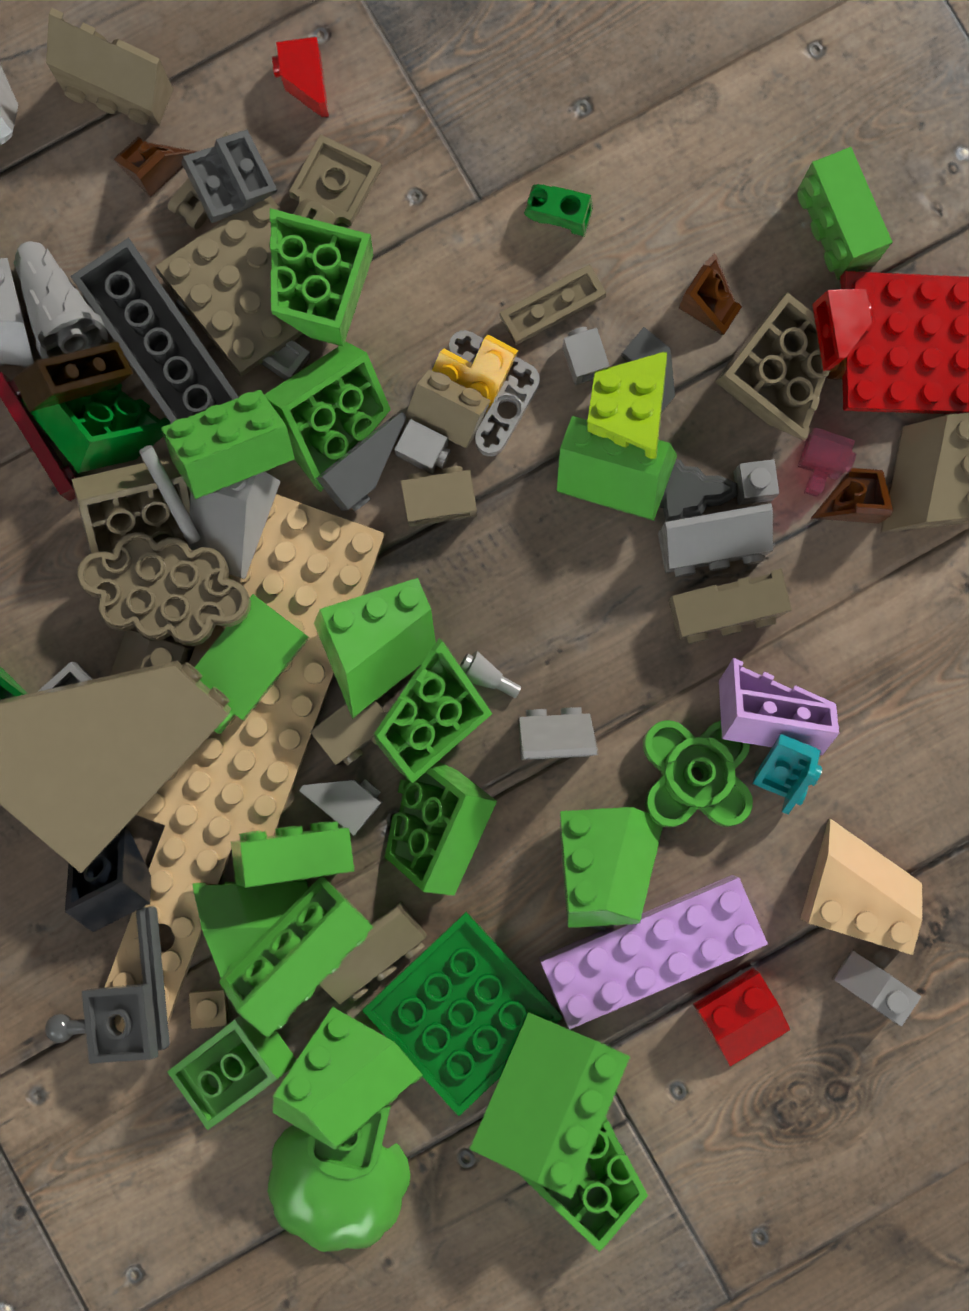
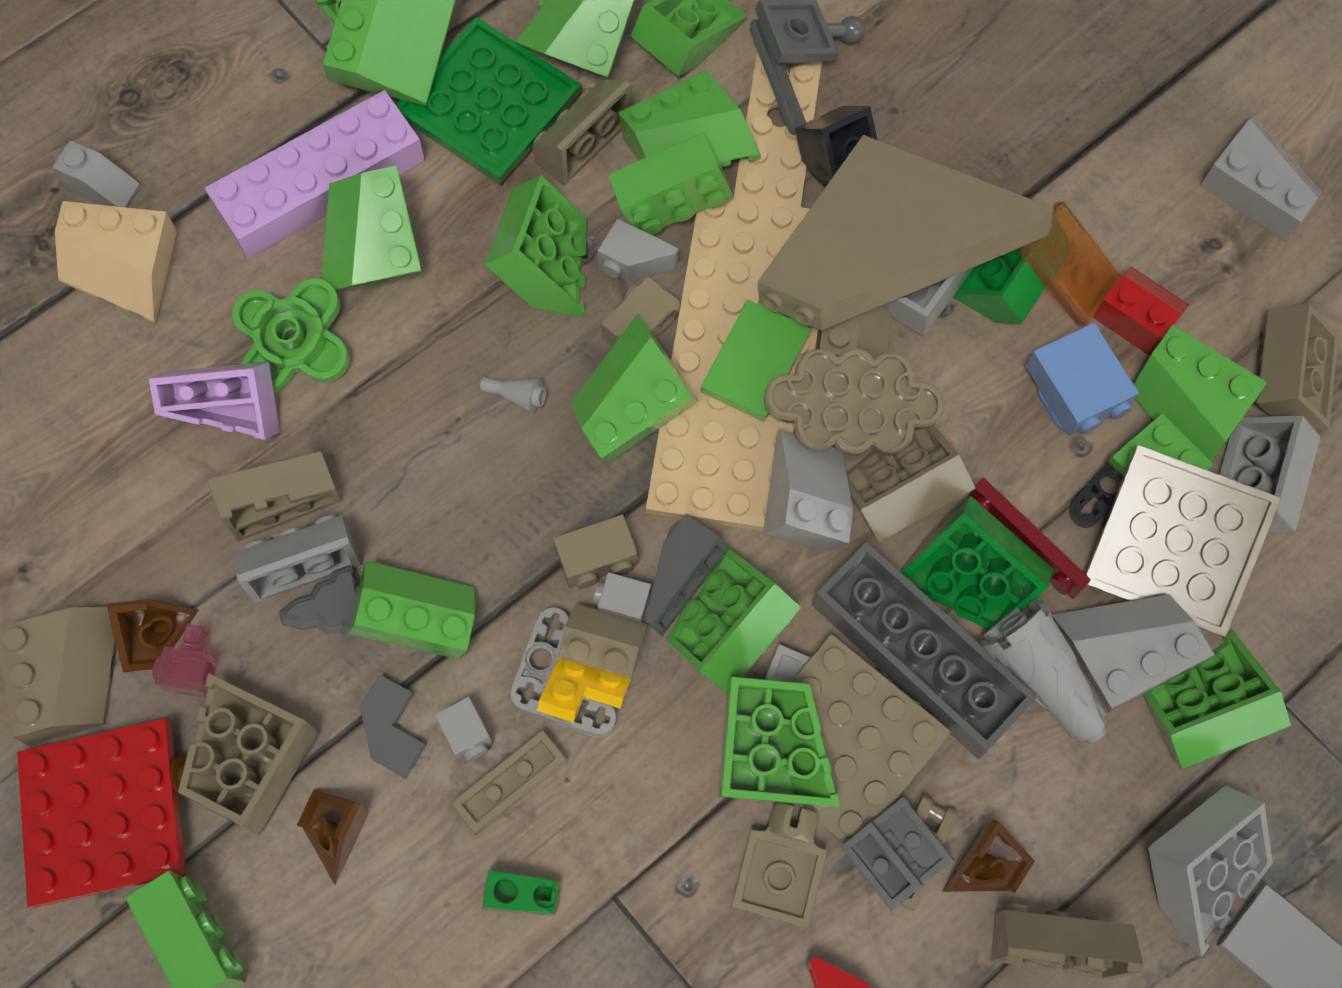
camera: 165 degrees right, 15 degrees down
(72, 376) = (999, 578): dark brown brick -> none
(169, 494) = (871, 487): light grey bar -> none
(208, 1008) = (723, 68): tan plate -> none
(228, 443) = (822, 539): bright green brick -> none
(294, 956) = (647, 90): bright green slope -> none
(430, 715) = (561, 328): bright green wedge -> none
(556, 735) = (433, 328): light grey slope -> none
(629, 403) = (405, 670): lime wing -> none
(742, 1016) = (227, 138): red slope -> none
(756, 482) = (259, 626): light grey brick -> none
(789, 771) = (196, 349): teal bracket -> none
(840, 323) = (176, 793): red slope -> none

